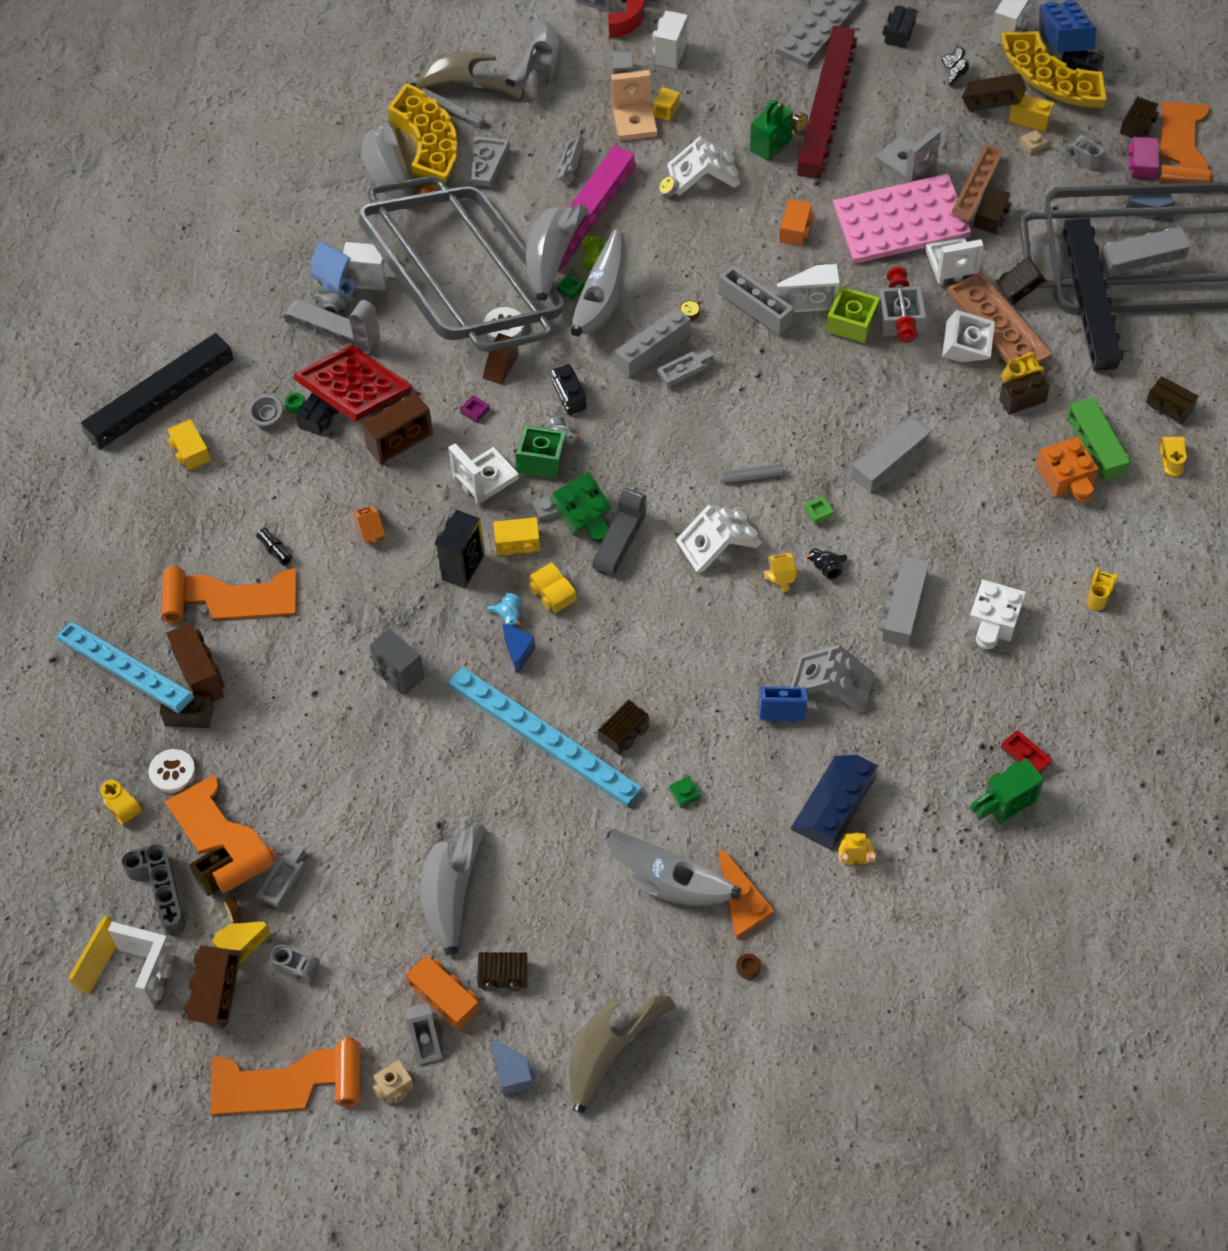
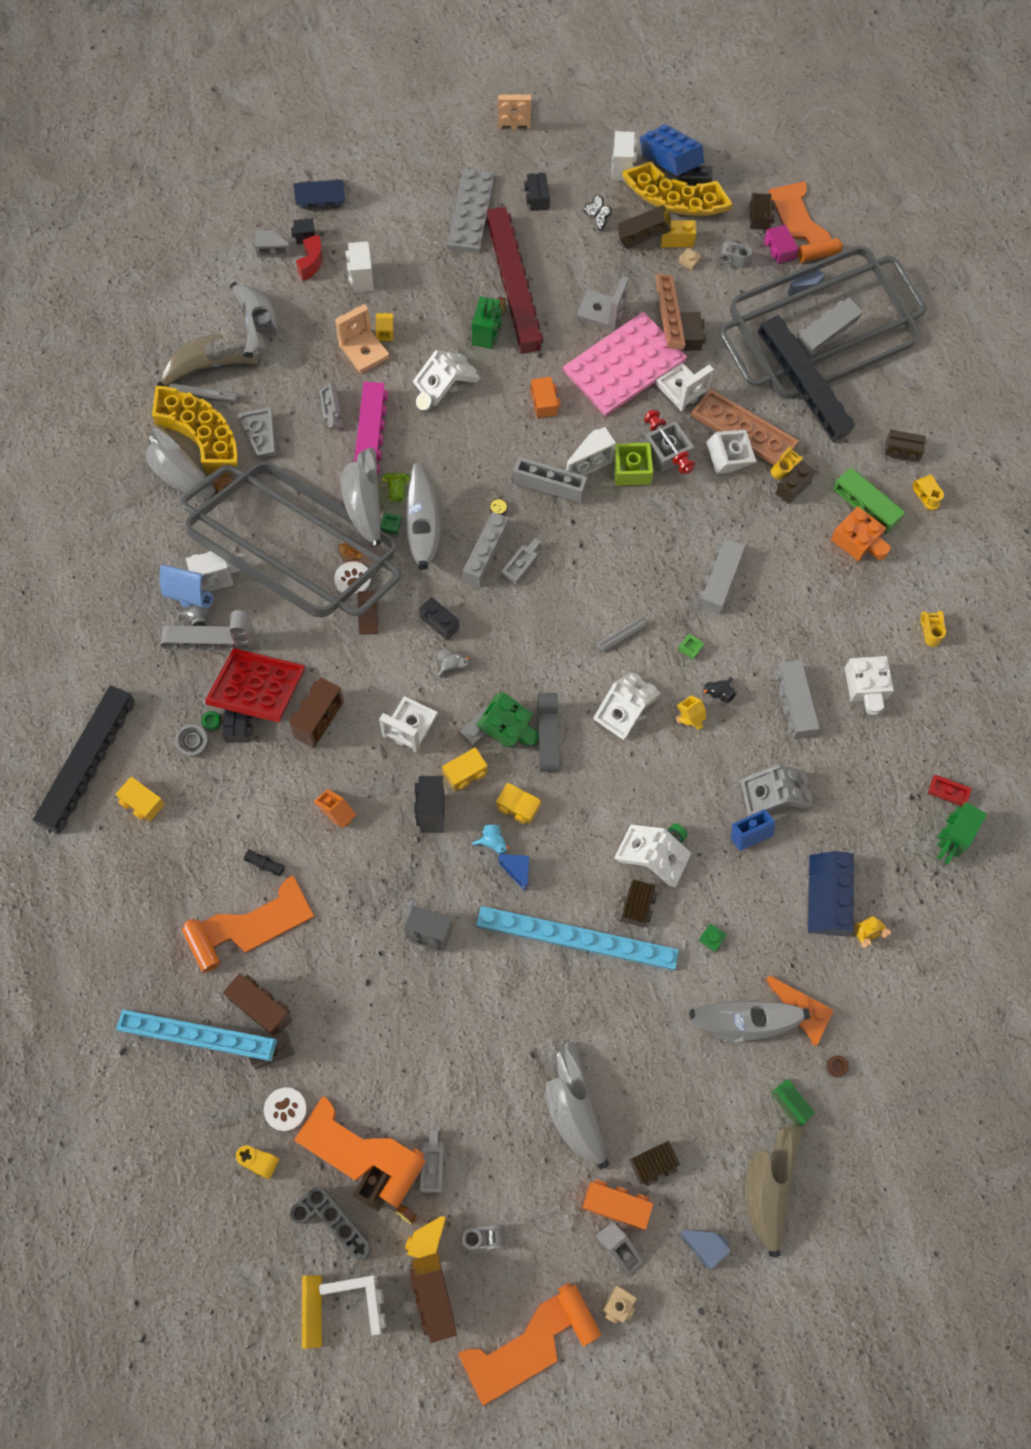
camera: 30 degrees left, 10 degrees up
(474, 409) = (368, 666): magenta tile -> none
(512, 298) = (348, 553): none -> clear orange plate
(540, 451) = (446, 685): green slope -> none
(622, 62) = (330, 304): light grey brick -> none
(662, 678) = (654, 852): none -> white bracket
(680, 979) = (792, 1102): none -> green panel
(703, 678) = (678, 832): none -> green tile
(1021, 280) = (746, 385): dark brown brick -> none

